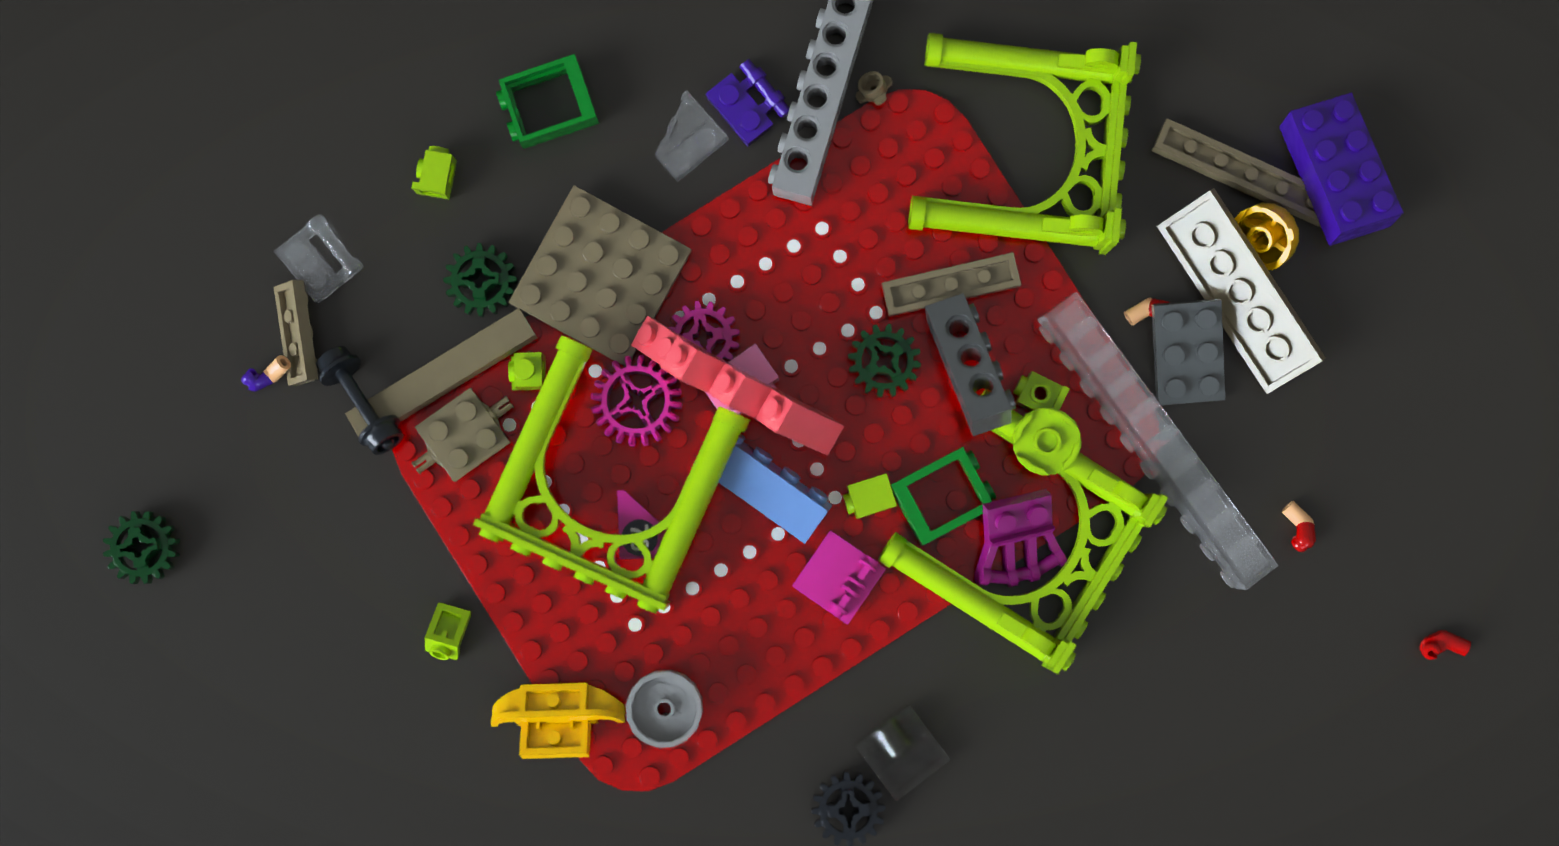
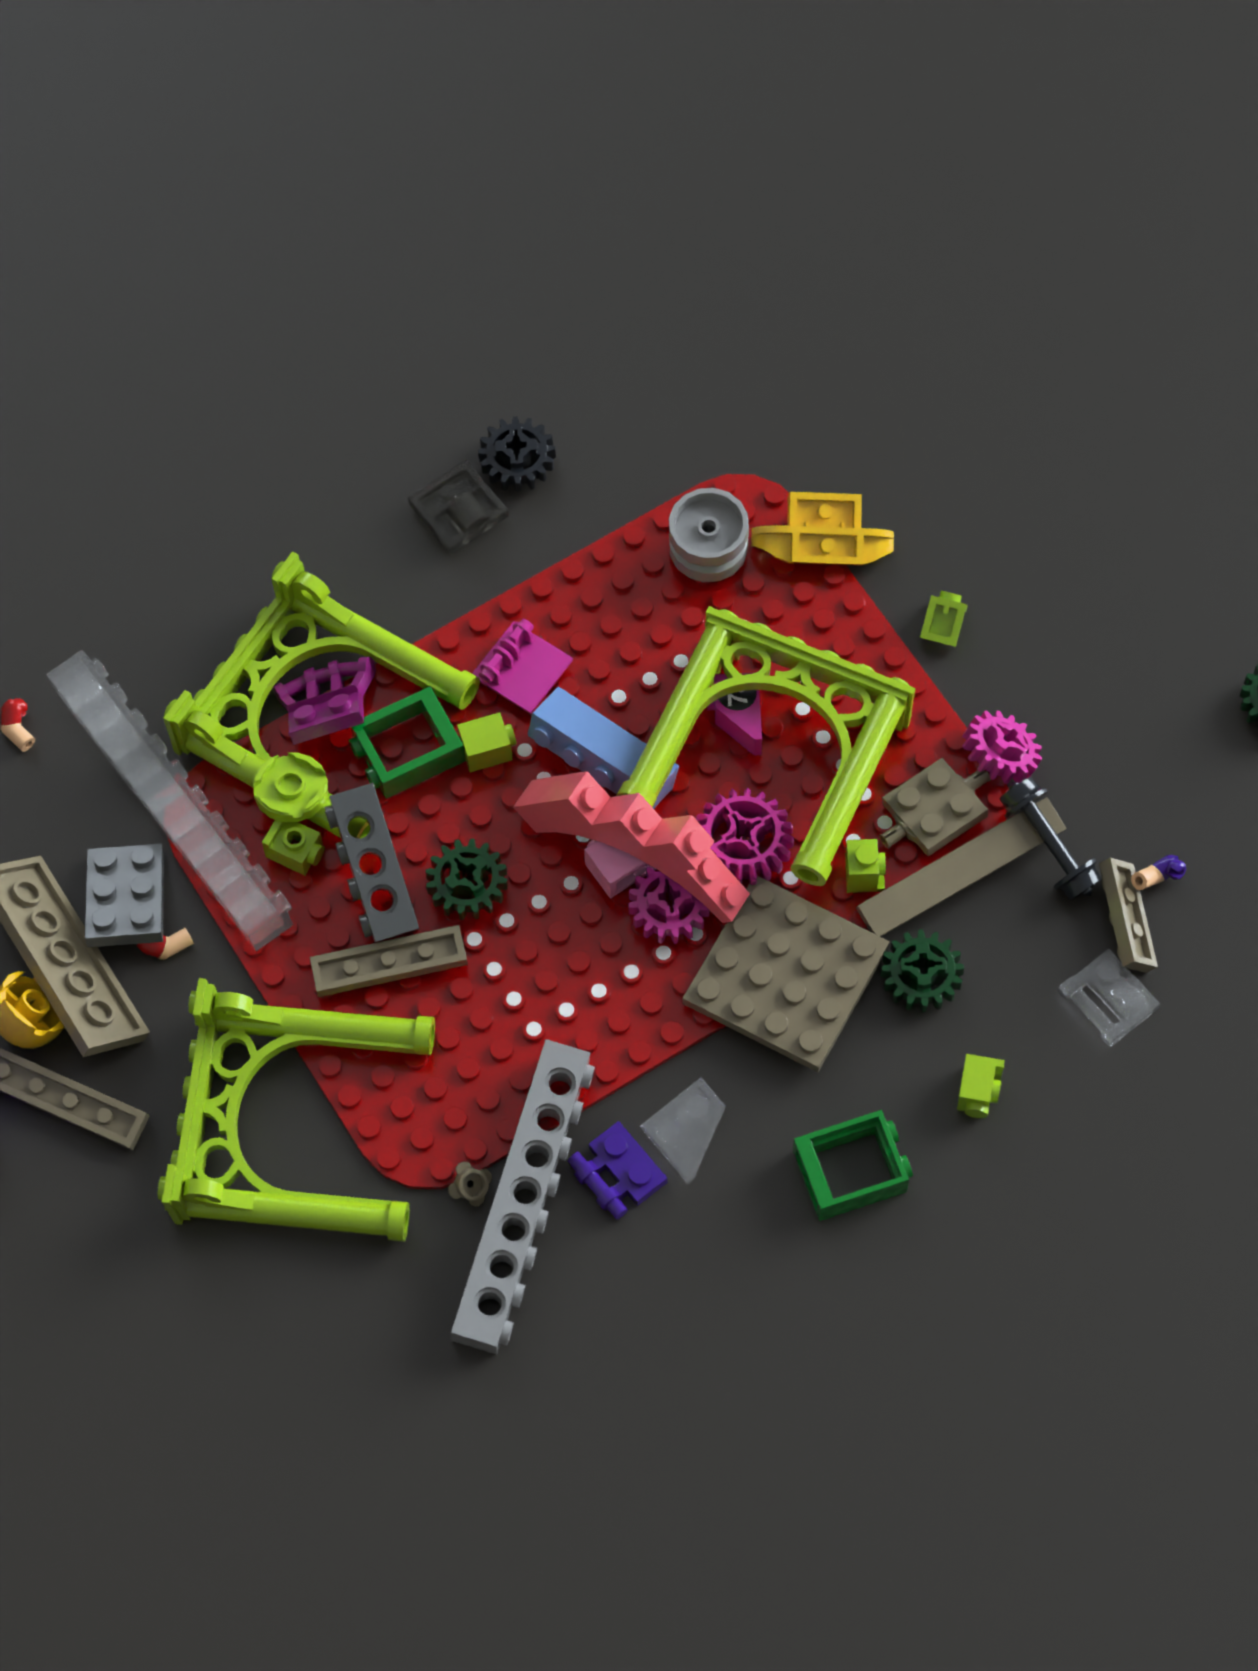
camera: 170 degrees left, 20 degrees down
(399, 494) = (1002, 747): none -> dark pink gear

